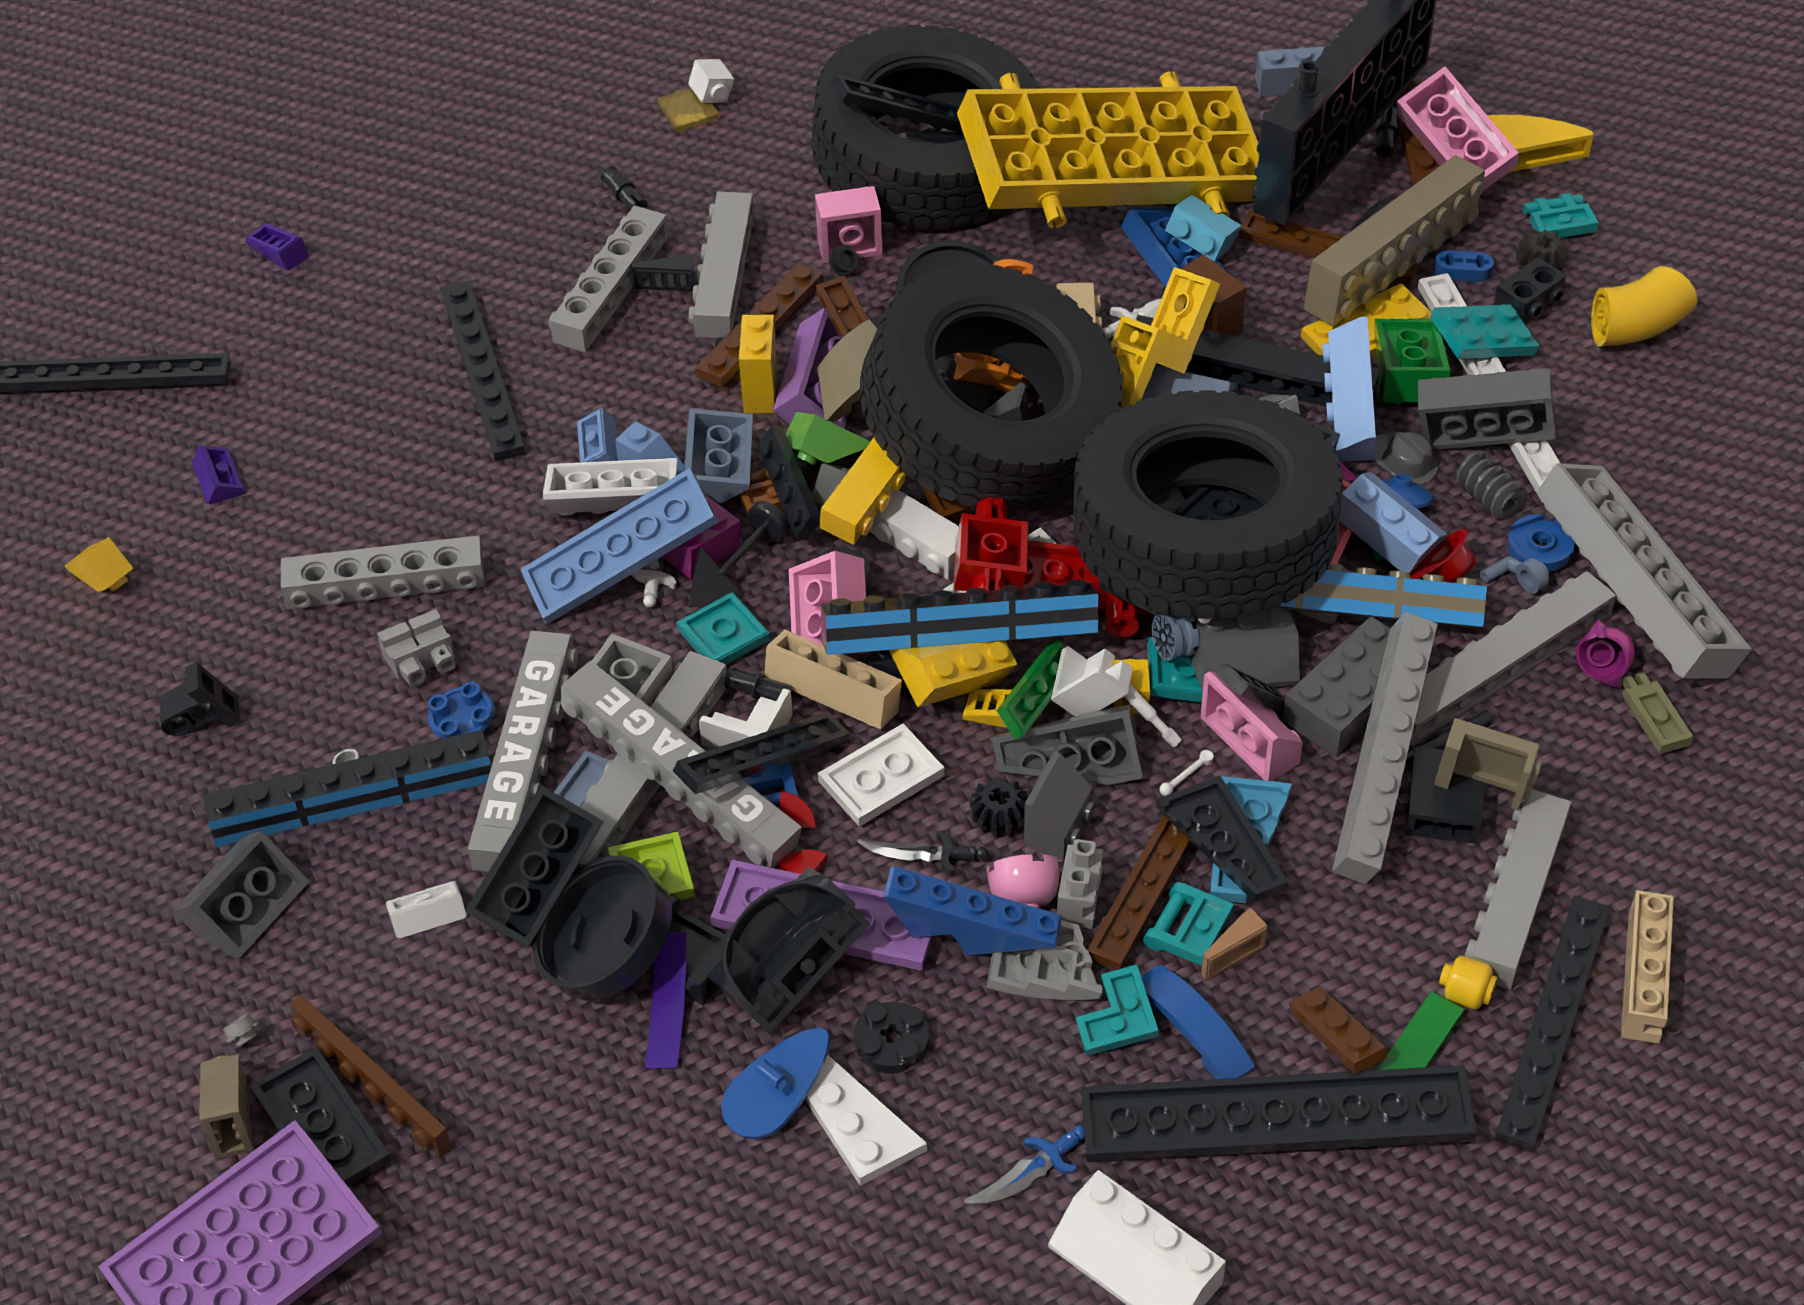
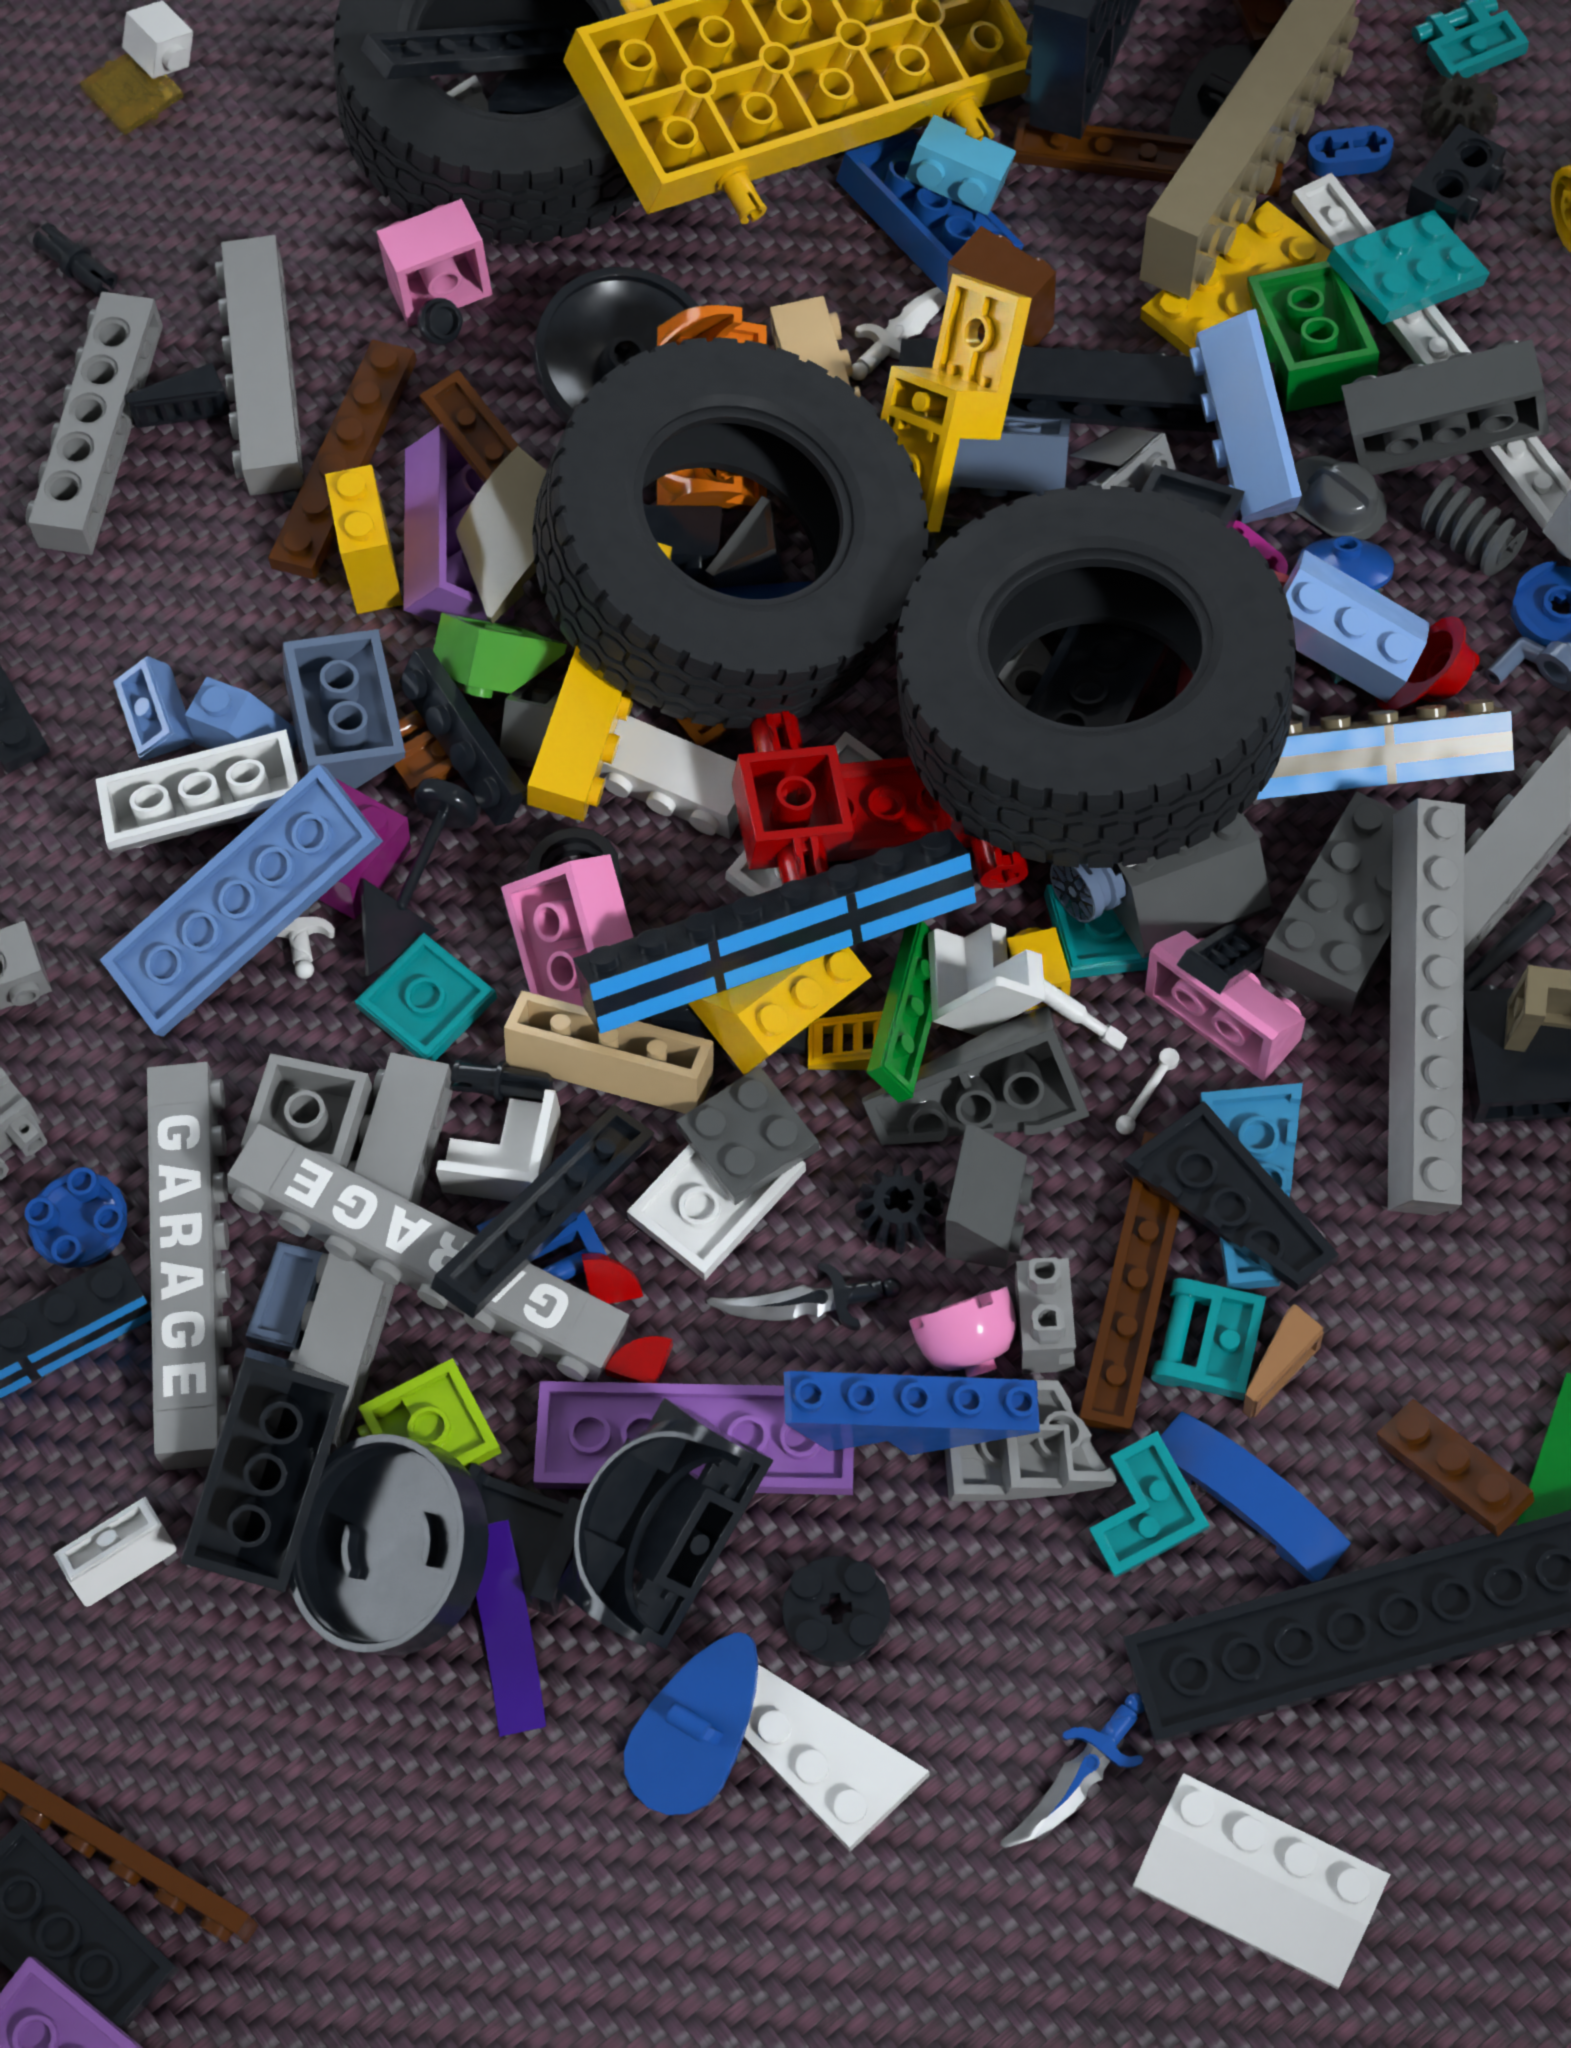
camera: 10 degrees left, 15 degrees up
(910, 742) = (747, 1135): none -> dark grey plate

